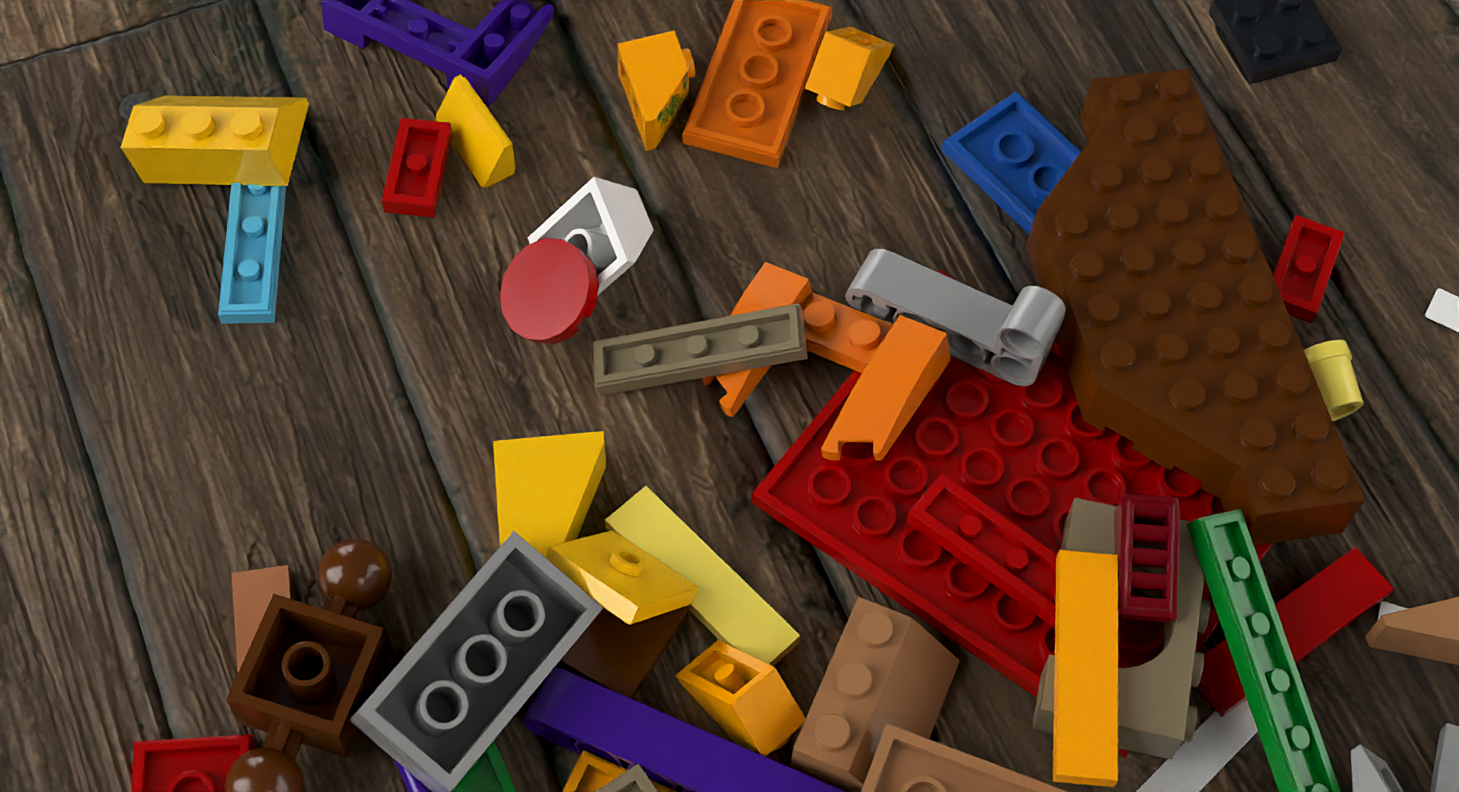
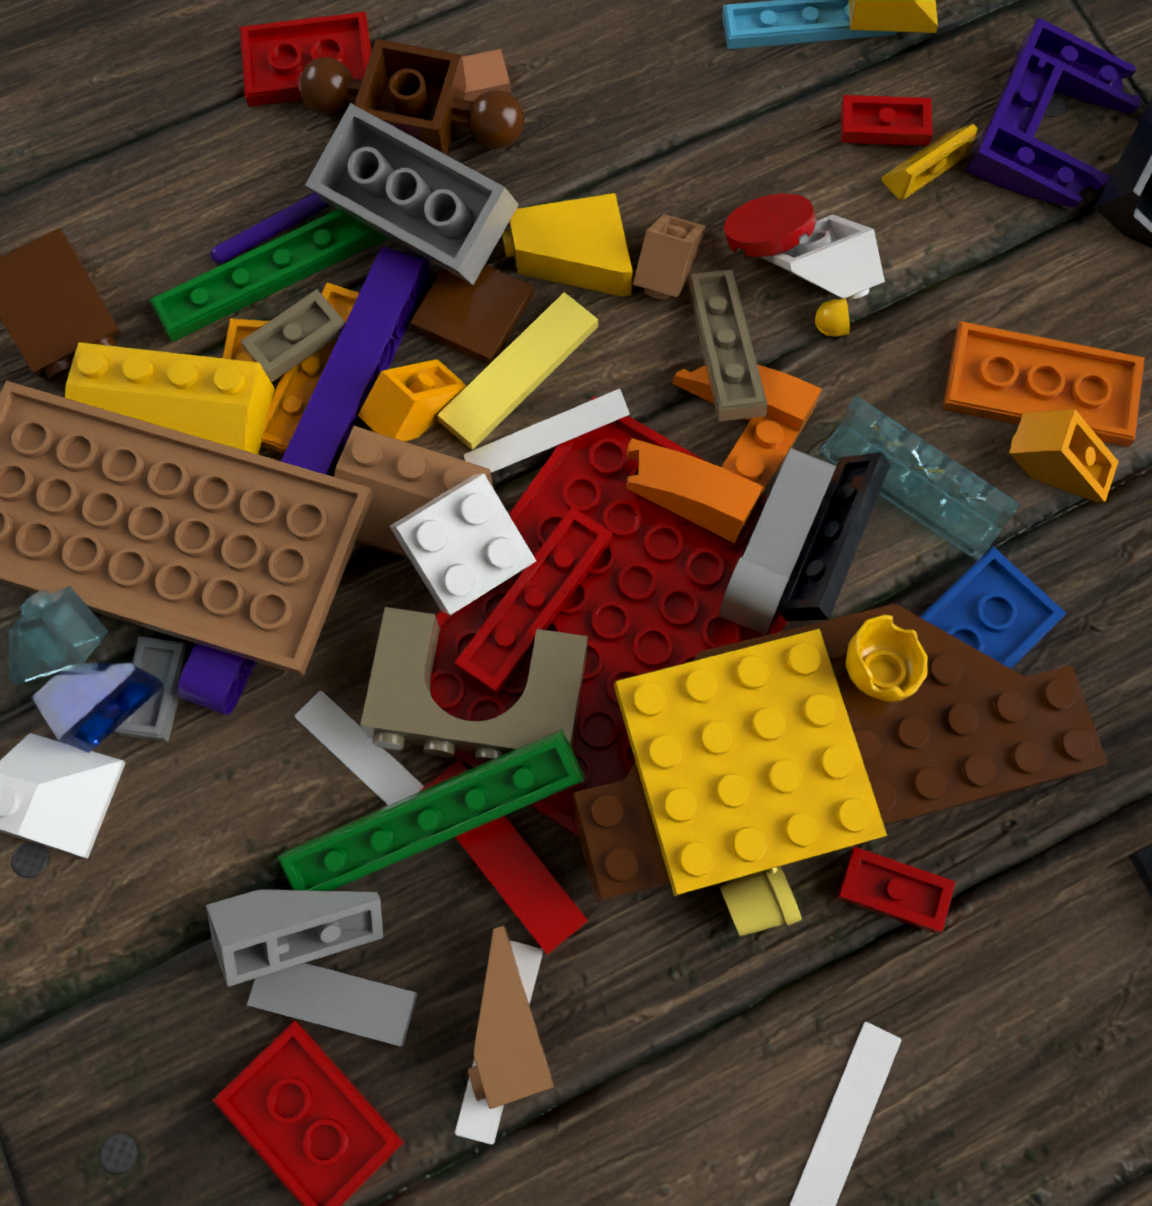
camera: 90 degrees right, 10 degrees up
(570, 397) = (668, 256): none -> medium nougat slope
(622, 576) = (498, 293): yellow plate -> none
(655, 82) = (1006, 291): light orange slope -> none
(667, 246) = (833, 318): none -> yellow hinge
(797, 551) = (550, 432): none -> white sticker
(866, 195) = (917, 479): none -> clear light blue fence
(962, 621) = (463, 543): none -> white brick
(966, 261) = (834, 538): none -> black plate
(1086, 669) = (419, 639): light orange tile -> none
(1118, 211) = (886, 660): none -> yellow hair
(1148, 521) = (520, 672): dark red slope -> none
(1219, 349) = (748, 761): none -> yellow plate

